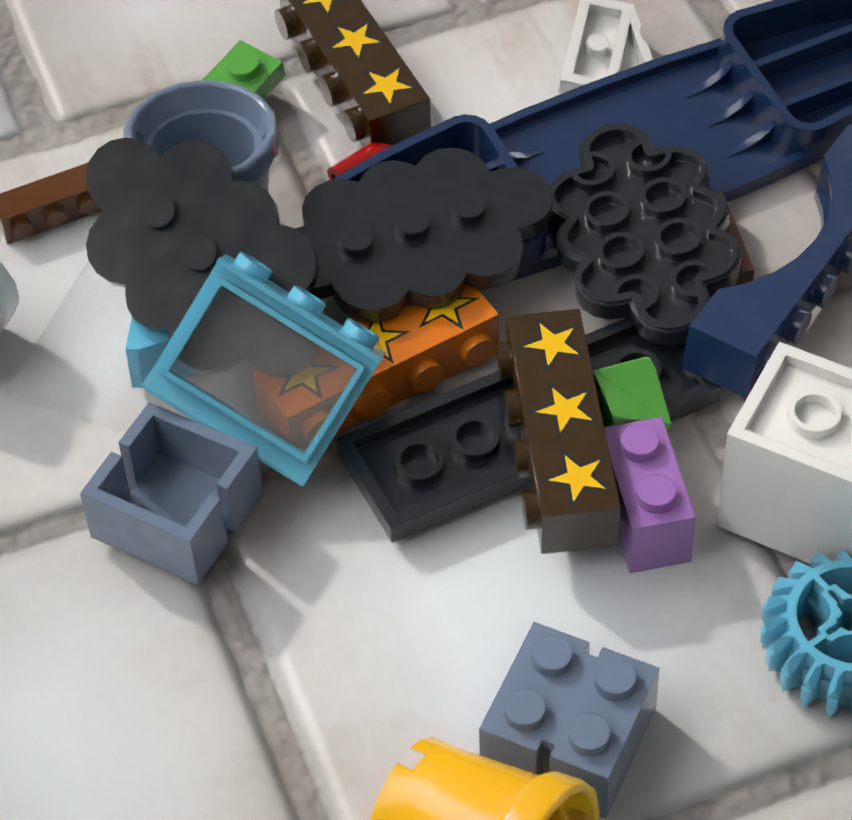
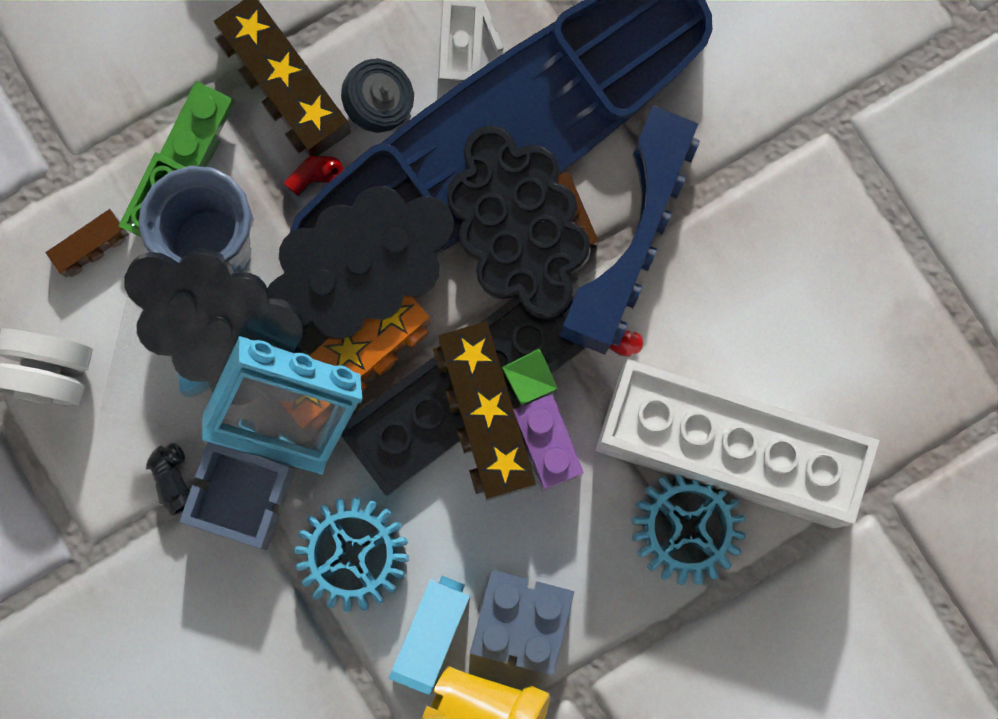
camera: 15 degrees left, 30 degrees up
(75, 460) = (169, 481): none -> black arm
(297, 625) = (320, 573): none -> medium azure gear
(427, 694) = (430, 635): none -> medium azure slope
(473, 83) = (377, 95): none -> black wheel

